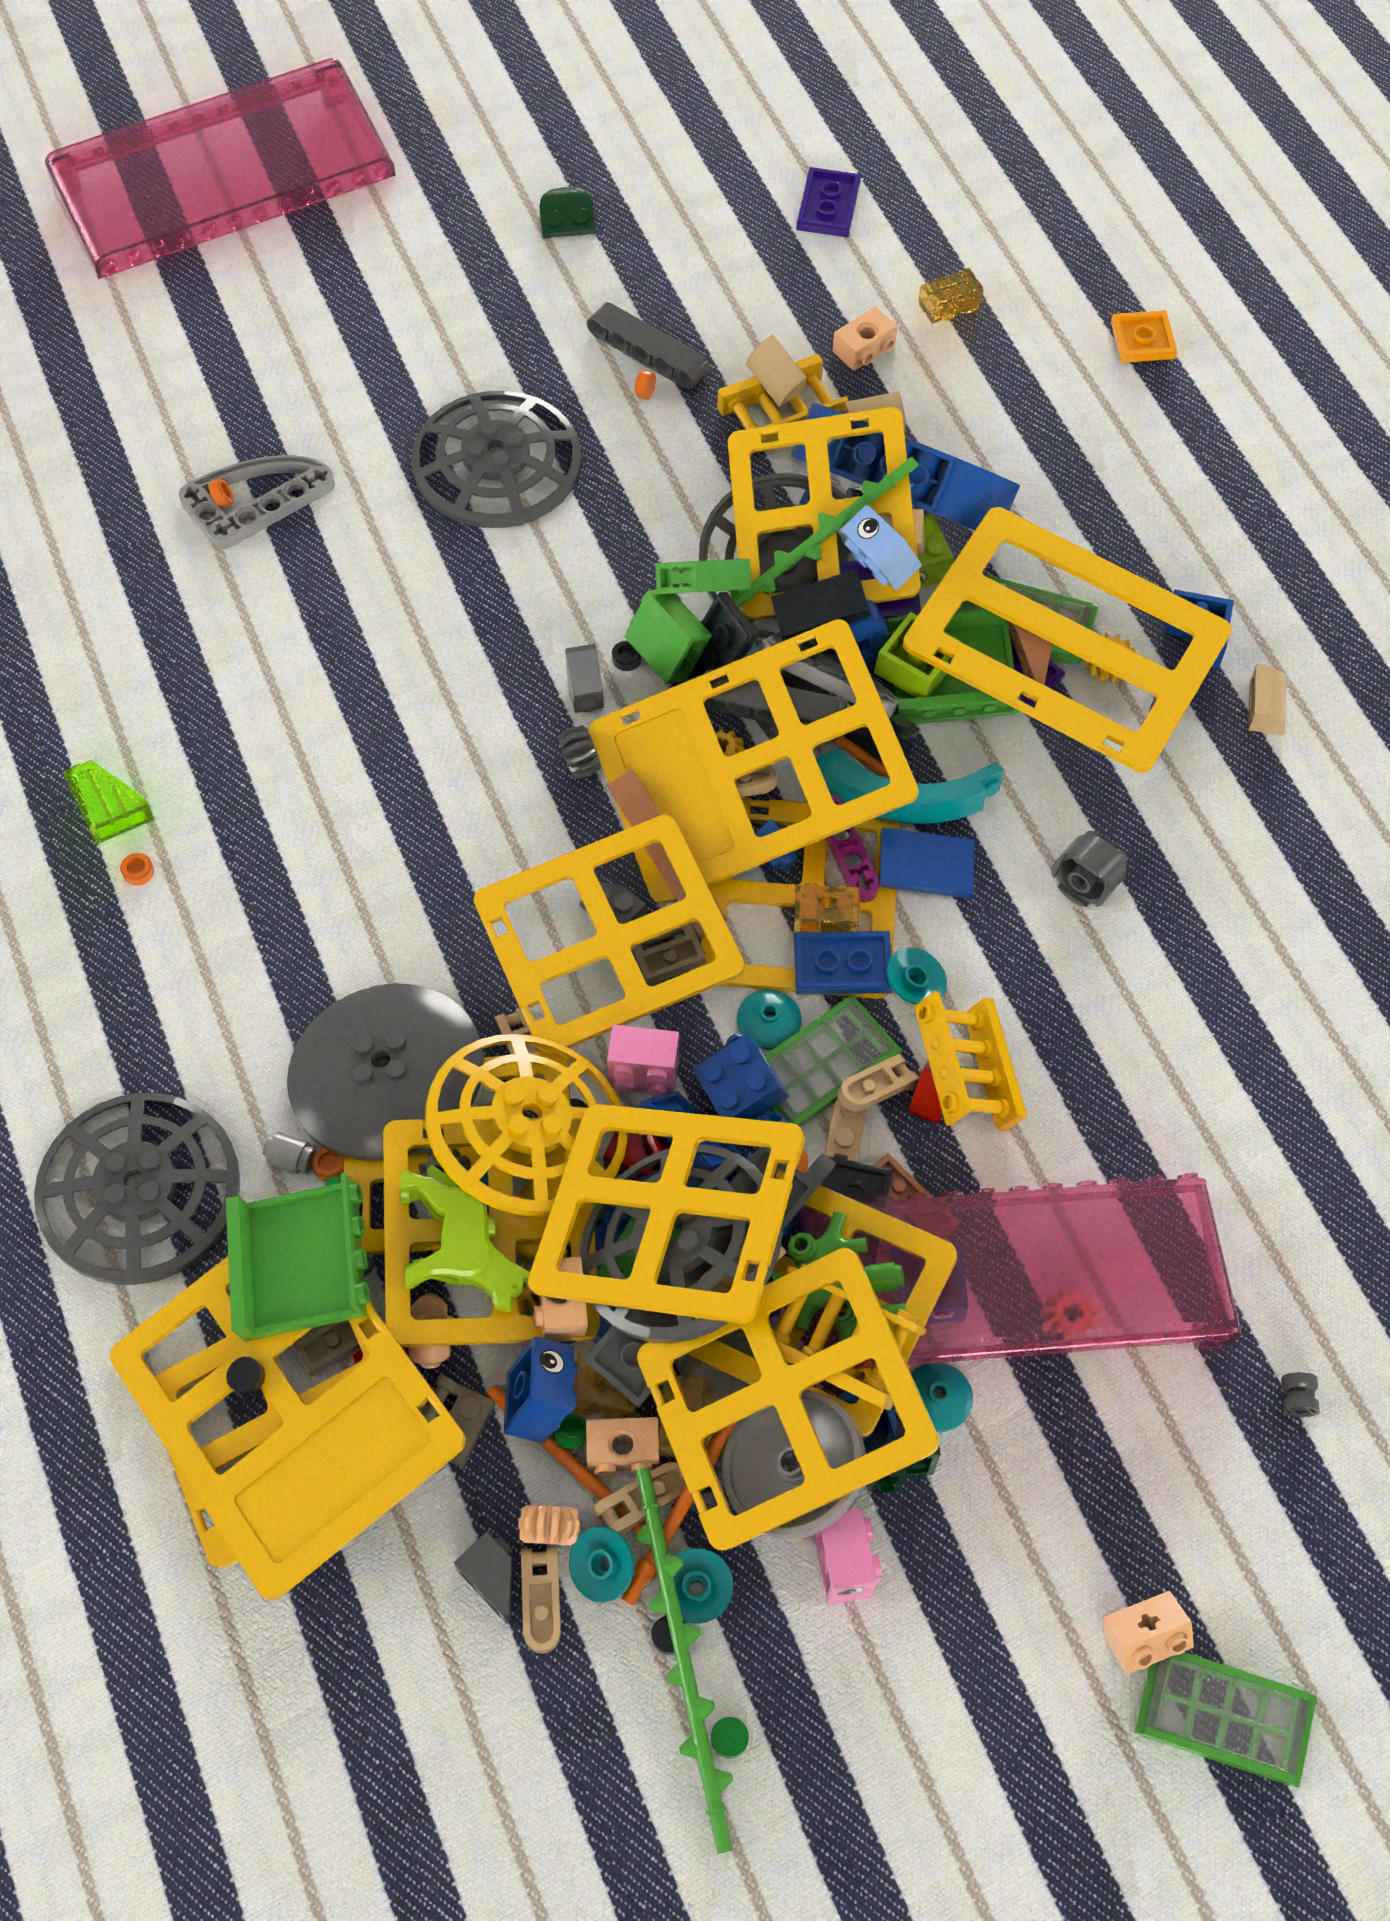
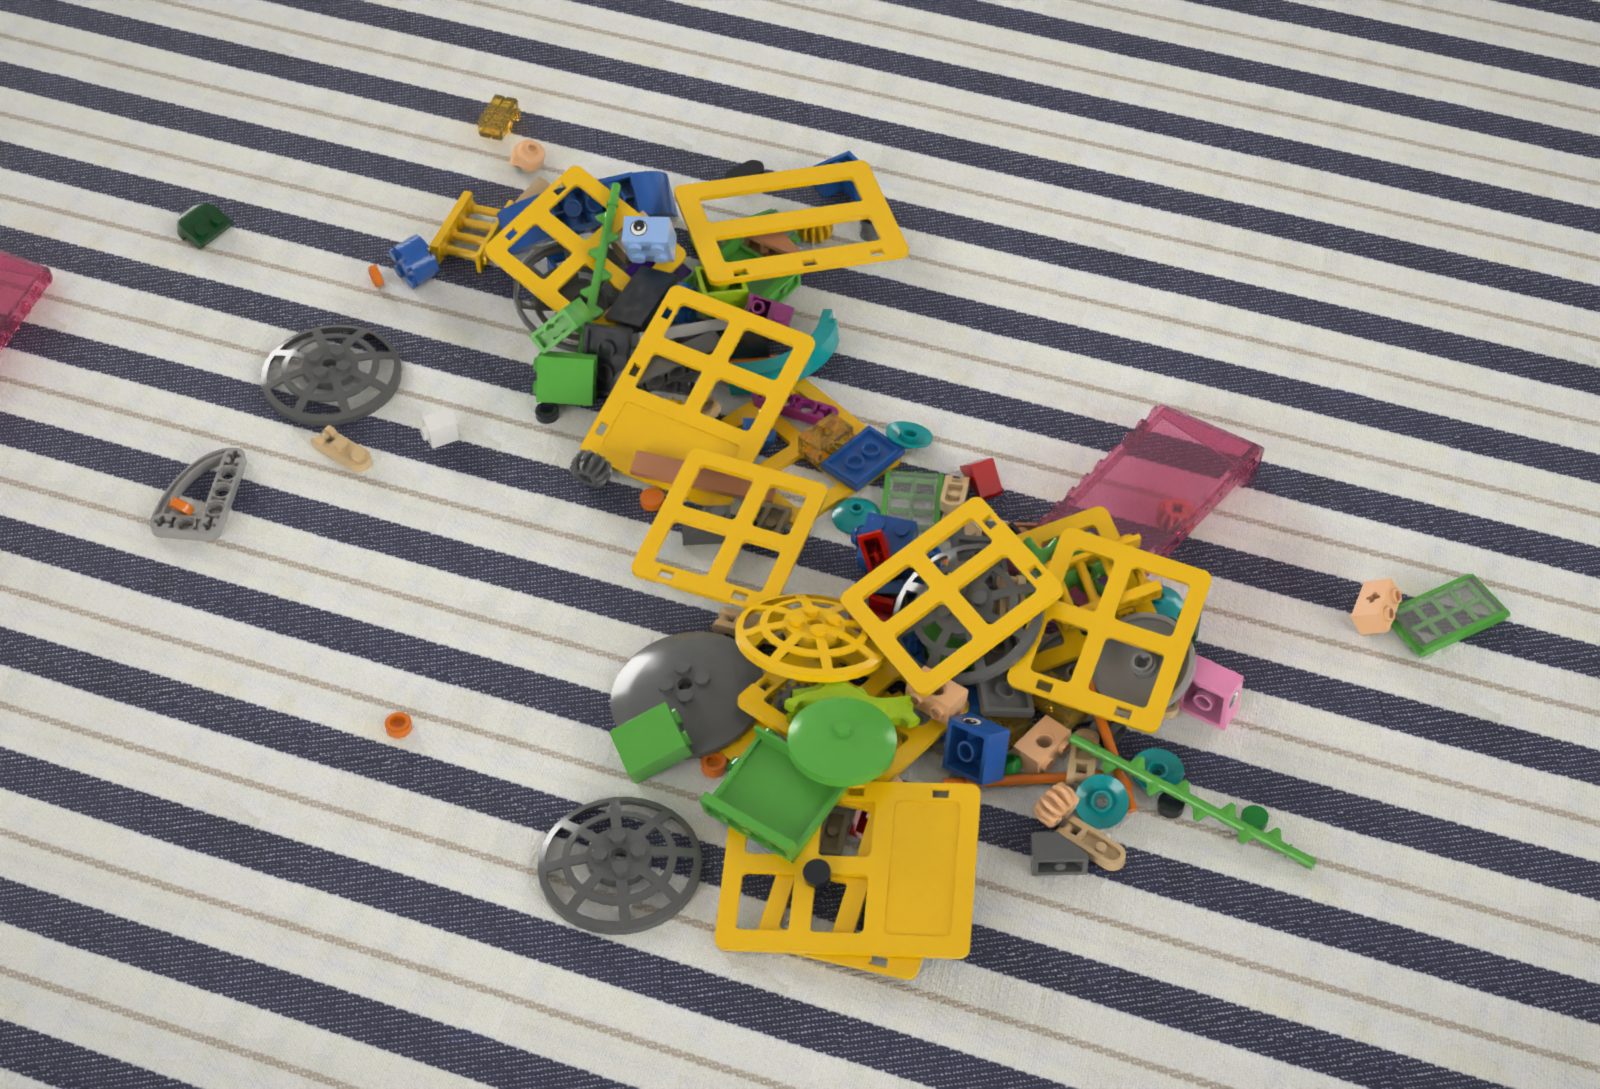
camera: 45 degrees left, 15 degrees down
(106, 801) = (331, 705): clear neon green slope -> none
(285, 1092) = (651, 742): none -> bright green brick
(289, 1153) = (687, 774): light grey brick -> none
(390, 1268) = (842, 741): none -> bright green dish
(414, 546) = (342, 450): none -> tan plate
(511, 593) = (439, 428): none -> white brick
(584, 678) = (545, 433): dark grey slope -> none
(604, 827) = (652, 499): none -> orange tile
(643, 1060) = (825, 571): bright pink brick -> none
(648, 345) = (345, 256): dark grey beam -> none
(687, 395) = (414, 261): none -> blue brick
(700, 1087) = (875, 548): none -> red slope
(776, 371) = (457, 210): tan brick -> none
(828, 202) = (358, 119): dark purple tile -> none
(864, 338) = (477, 169): light nougat brick -> none
(924, 360) = (528, 156): none -> light nougat head
(926, 863) = (844, 383): blue tile -> none
(937, 723) = (770, 309): none -> magenta slope
(992, 1058) = (988, 445): yellow fence -> none
(1090, 870) = (933, 321): dark grey brick -> none
(1115, 542) = (747, 168): none -> black tile
(1143, 336) = (632, 68): light orange plate -> none
(1267, 700) = (916, 190): tan brick -> none
(1300, 1394) = (1313, 462): dark grey wheel -> none

